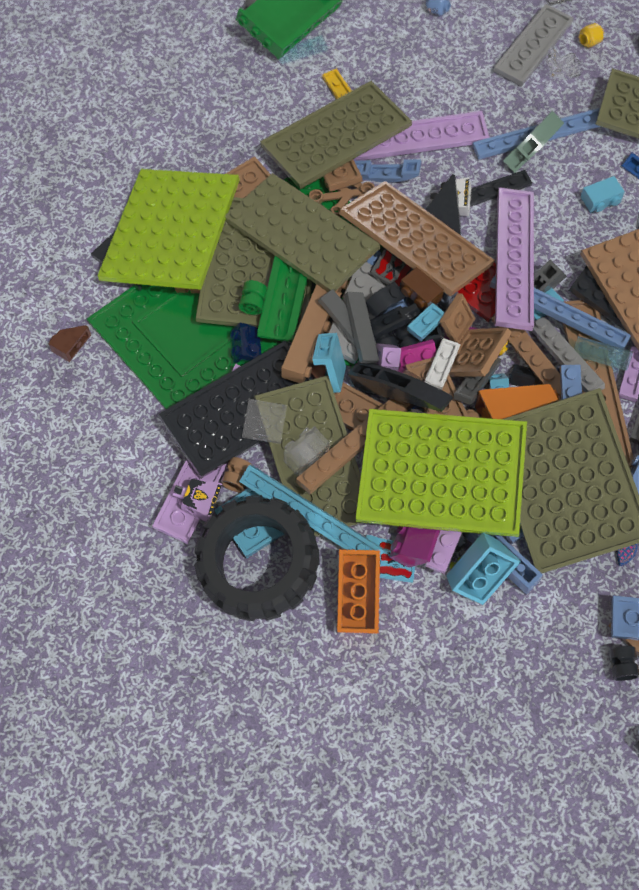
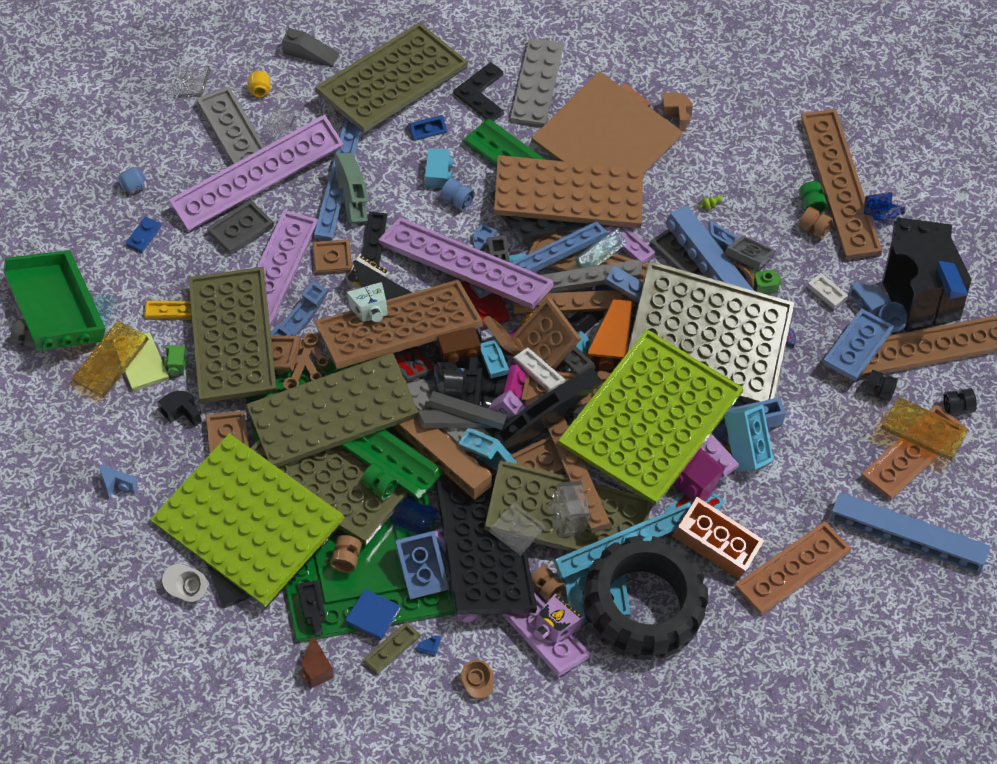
camera: 65 degrees left, 10 degrees down
(92, 218) = (184, 582): none -> white piece
(115, 465) = (477, 679): none -> medium nougat hat
(116, 389) = (391, 648): none -> olive tile
(119, 312) = (312, 605): none -> black hinge
(134, 416) = (429, 646): none -> blue tile
(136, 359) = (372, 614): none -> blue tile
(158, 128) = (113, 478): none -> medium blue slope
(171, 312) = (345, 554): none -> medium nougat wheel
(200, 367) = (421, 564): none -> medium blue slope
(250, 133) = (178, 404): none -> black brick
(265, 71) = (110, 359): none -> clear yellow plate
(280, 93) = (146, 367): none -> yellowish green tile
(292, 112) = (175, 359): none -> bright green brick
(374, 675) = (792, 568): none -> nougat plate
(396, 37) = (143, 234): none -> blue plate
(423, 206) = (368, 302): none -> light aqua torso
(446, 92) = (240, 227): none -> dark grey plate
(463, 165) = (332, 257): none -> medium nougat tile
(475, 769) = (910, 532): none -> medium blue brick
(503, 75) = (256, 173): none -> lavender plate
(562, 260) = (481, 234): none -> medium blue tile
(570, 729) = (901, 464): none -> nougat plate
(585, 220) = (456, 193): none -> medium blue wheel
(598, 727) = (925, 429): none -> clear yellow plate

